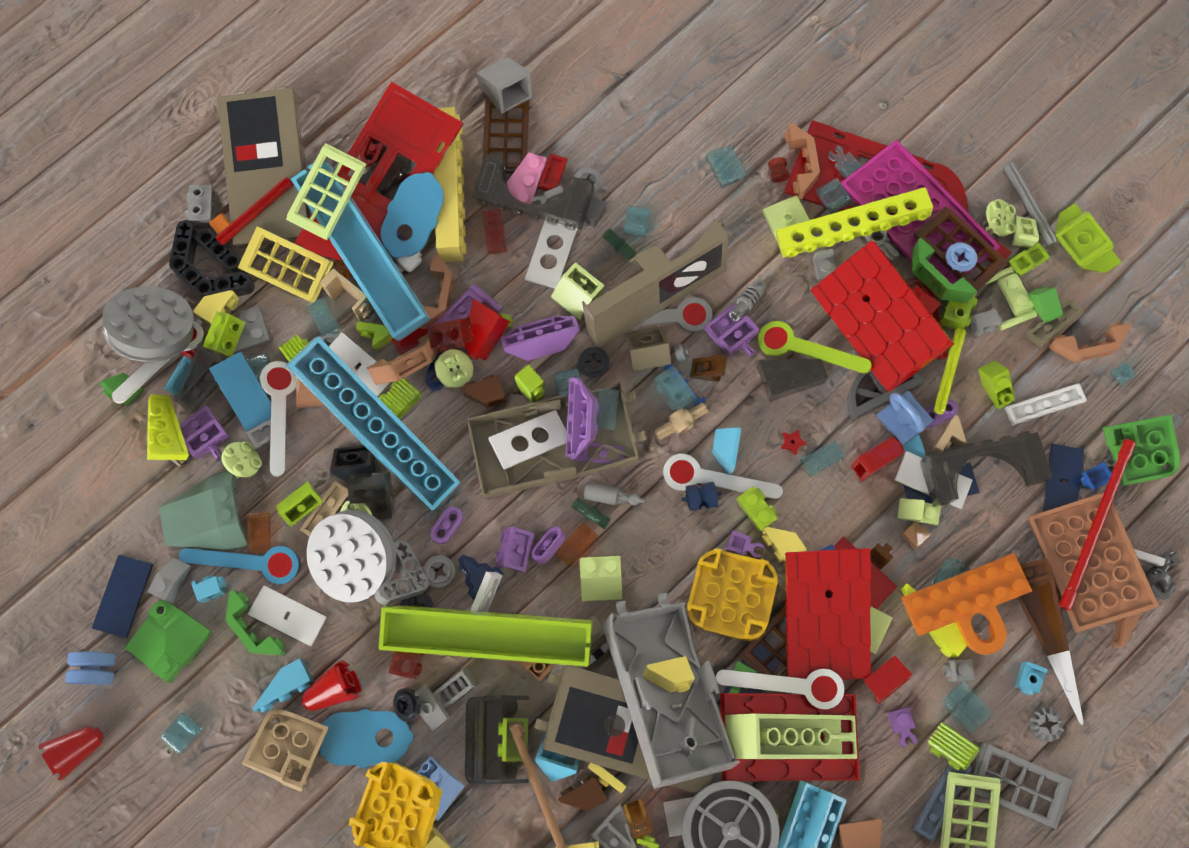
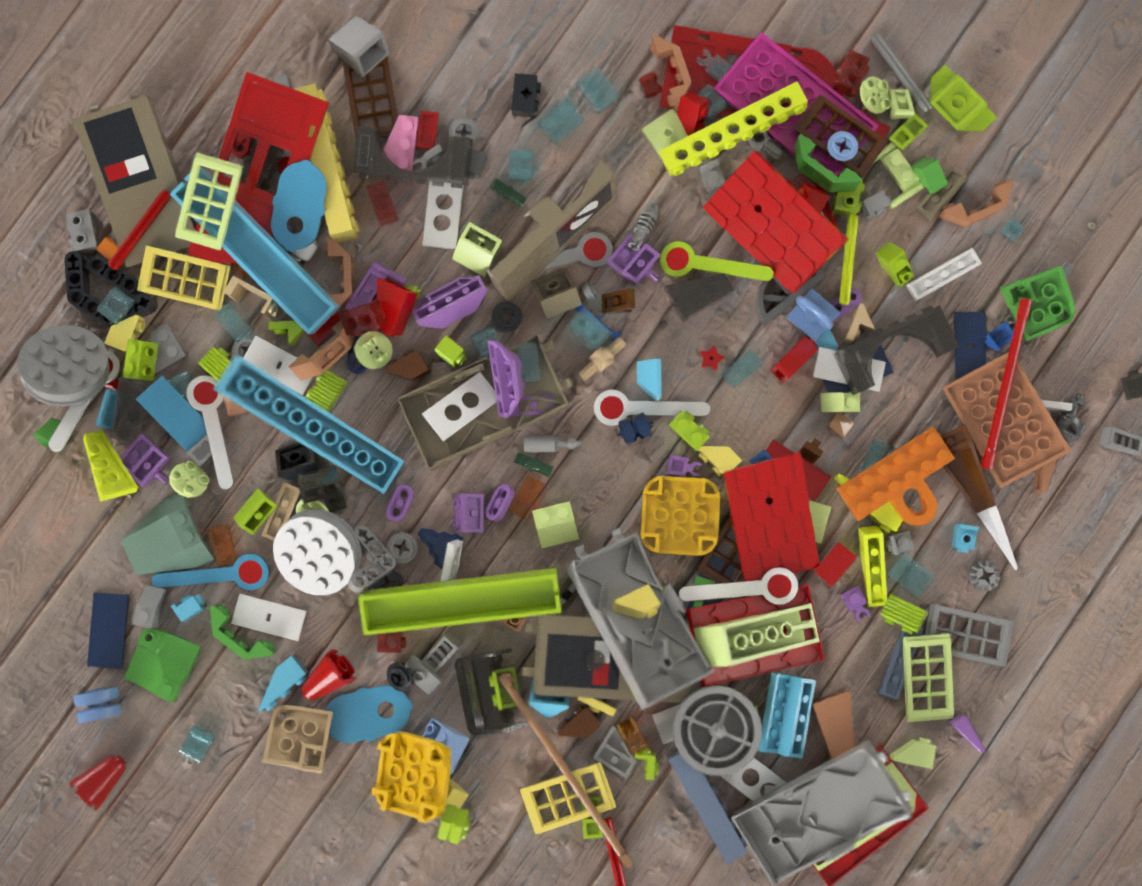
camera: 15 degrees left, 10 degrees up
(213, 277) = (115, 305): none -> clear light blue piece
(649, 166) = (525, 106): none -> black brick
(684, 188) = (560, 121): none -> clear light blue plate
(816, 200) = (692, 112): none -> red slope
(928, 688) = (873, 565): none -> neon yellow slope
(978, 193) = (849, 72): none -> clear red brick

